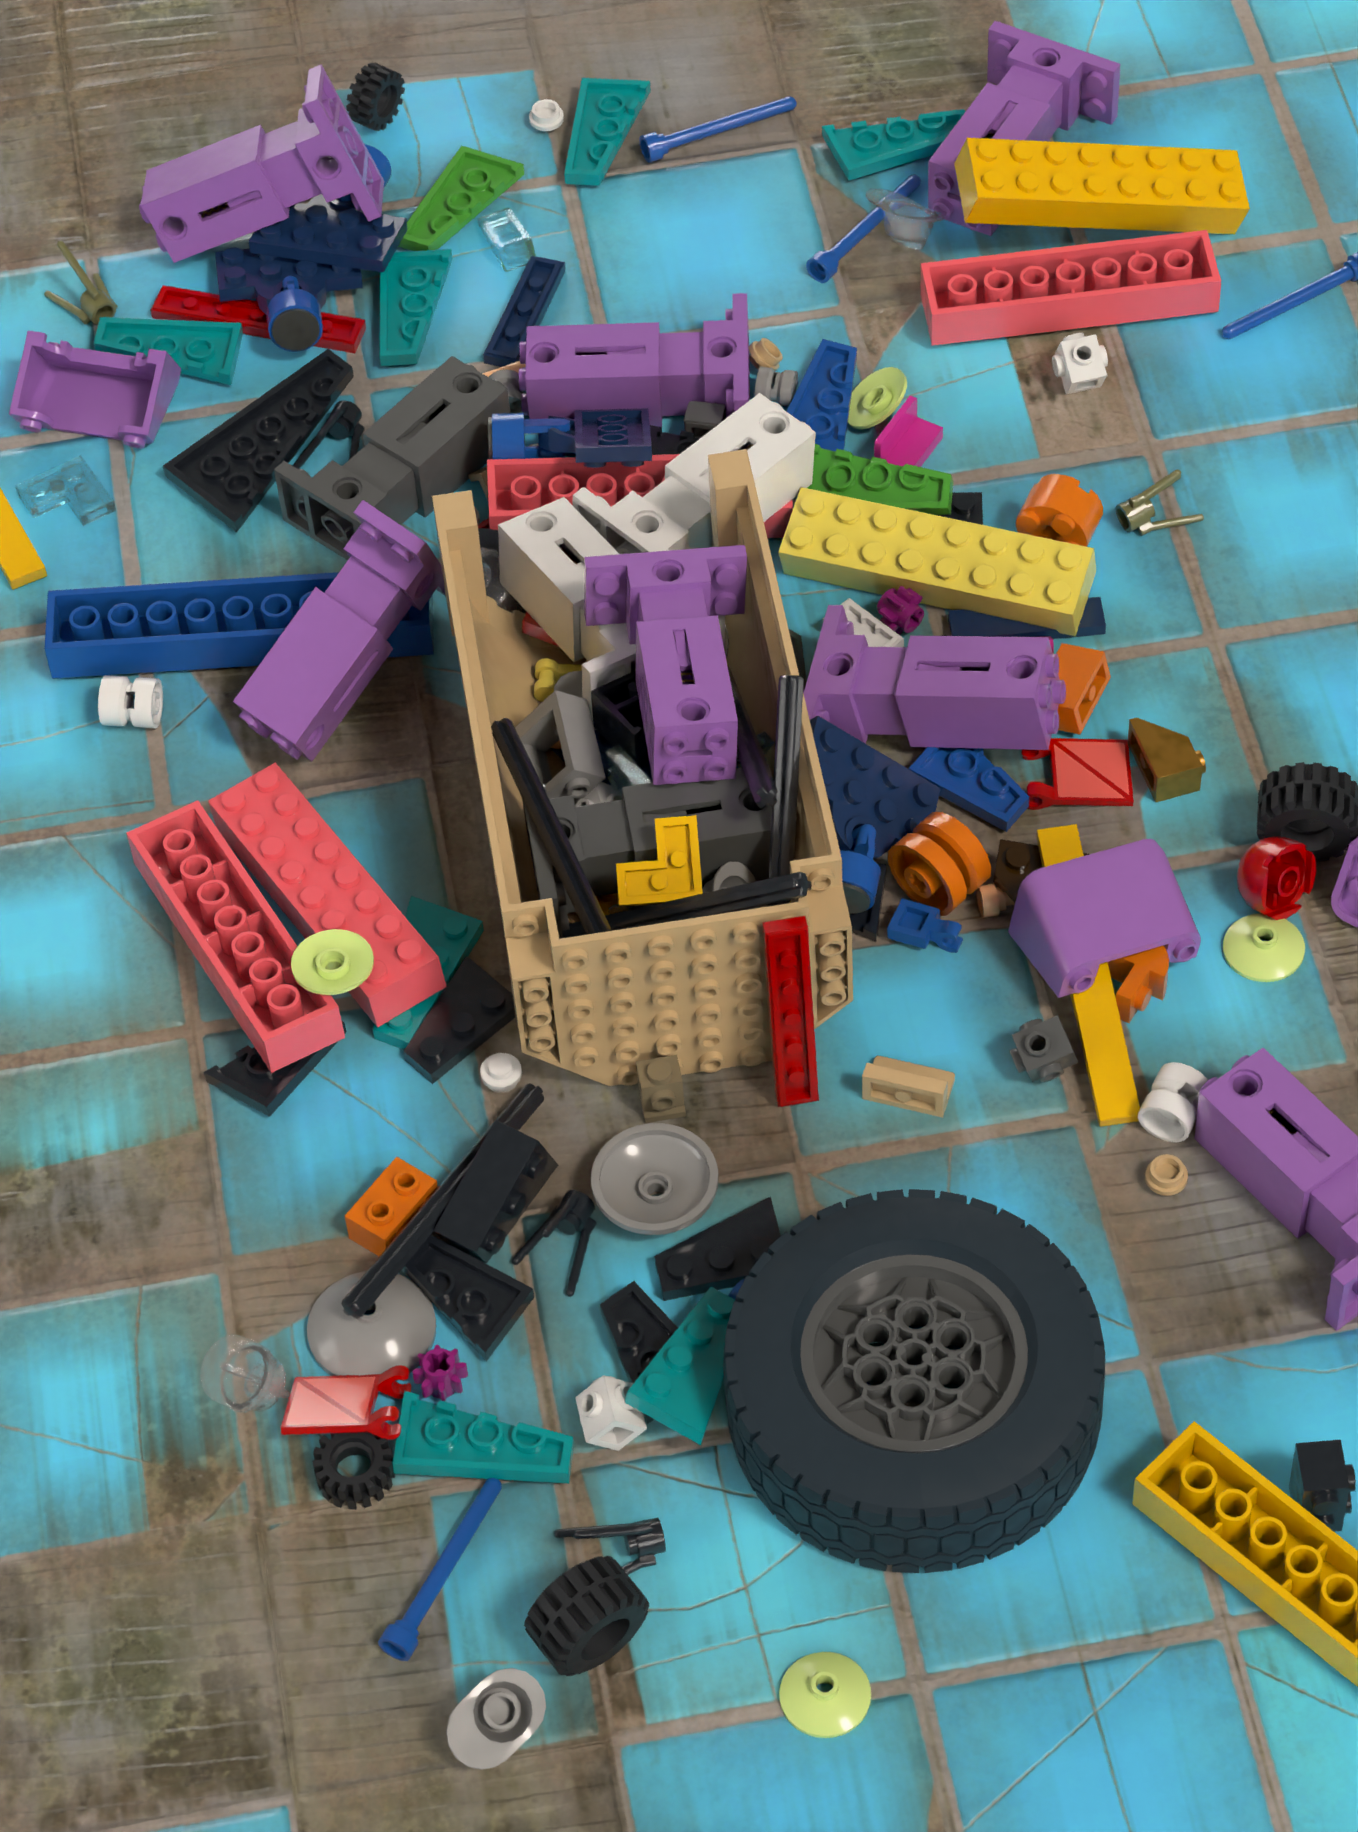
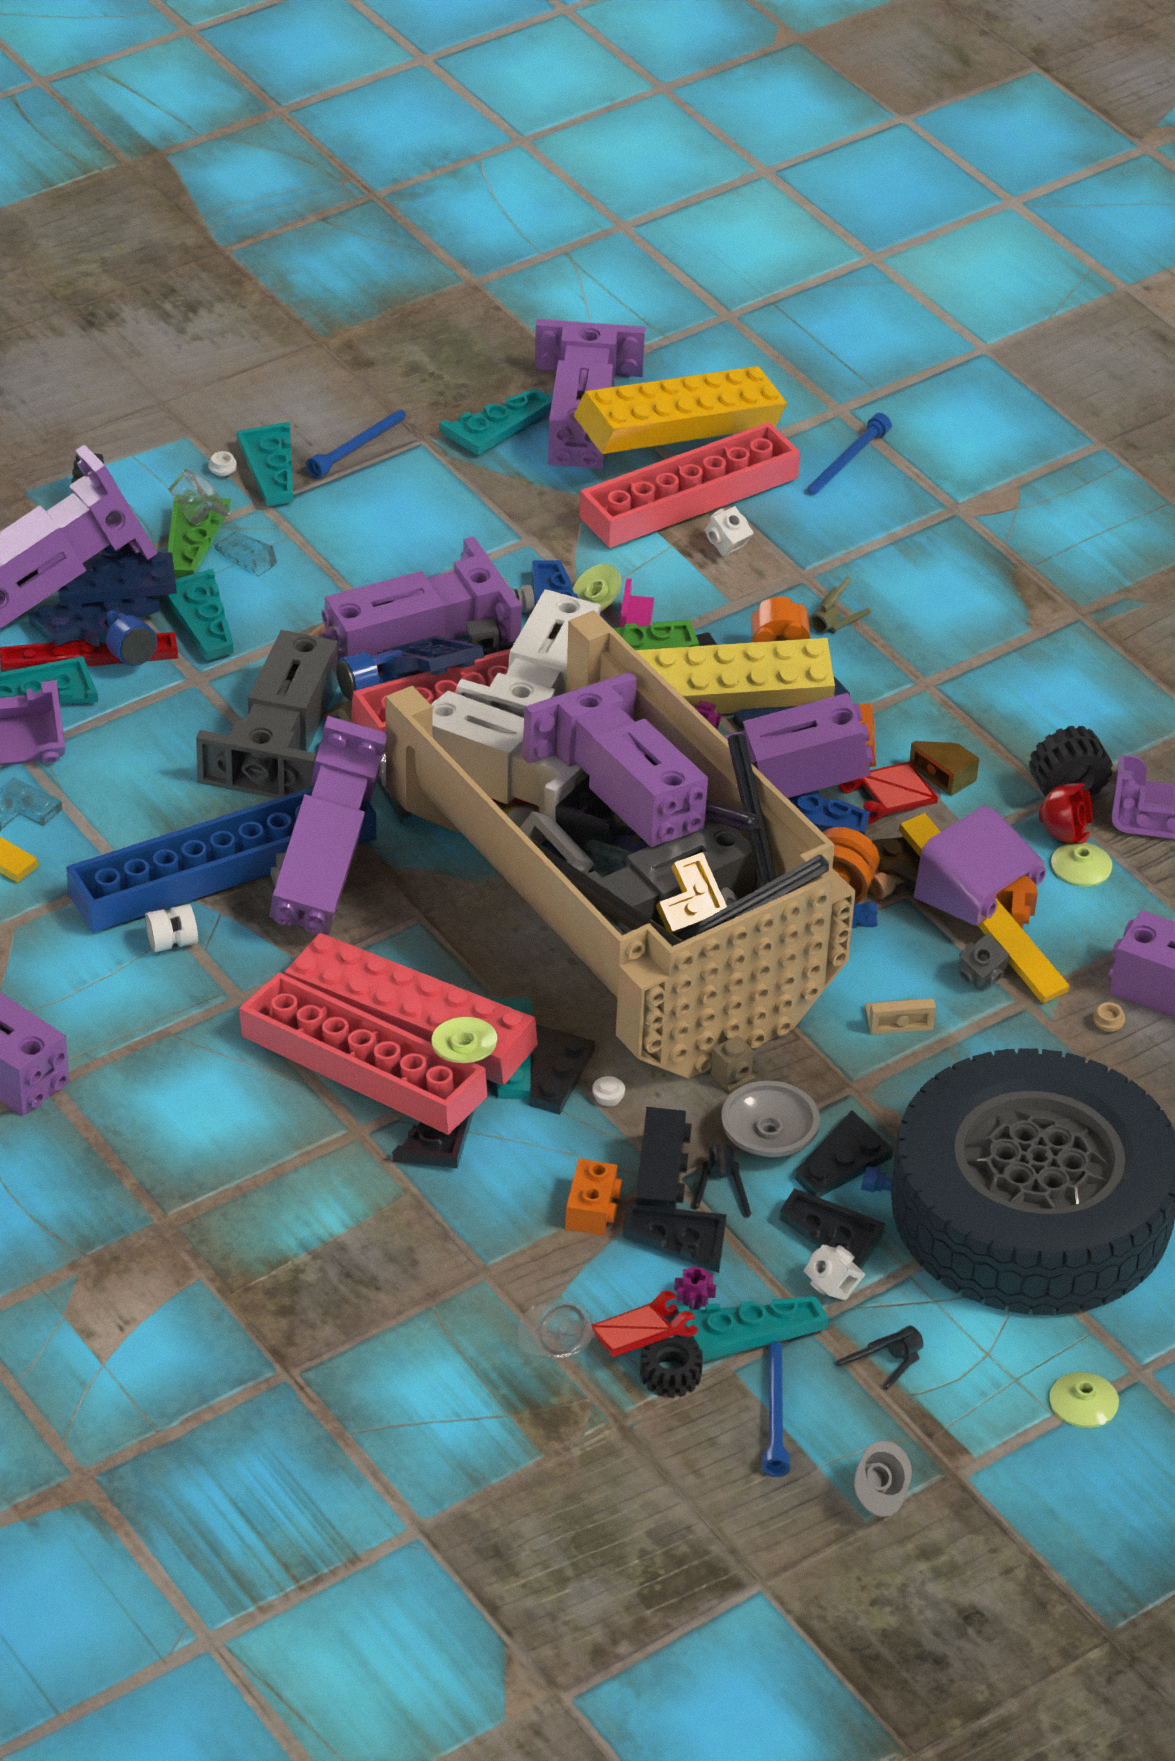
camera: 30 degrees left, 10 degrees down
(237, 460) = (147, 736): black wing -> none
(340, 424) = (205, 705): black plant -> none
(375, 1342) = (619, 1276): light grey dish -> none
(424, 1221) = (628, 1180): black axle -> none
(481, 150) = (196, 497): none -> clear panel
(524, 309) = (292, 595): dark blue tile -> none
(586, 1615) = (907, 1394): black tyre -> none
(687, 1371) = (875, 1226): teal wing -> none
(791, 1010) = (823, 970): red tile -> none
(825, 263) = (498, 513): blue piece -> none
(904, 219) = (540, 471): clear piece -> none
(1173, 1102) = (1089, 970): white wheel -> none

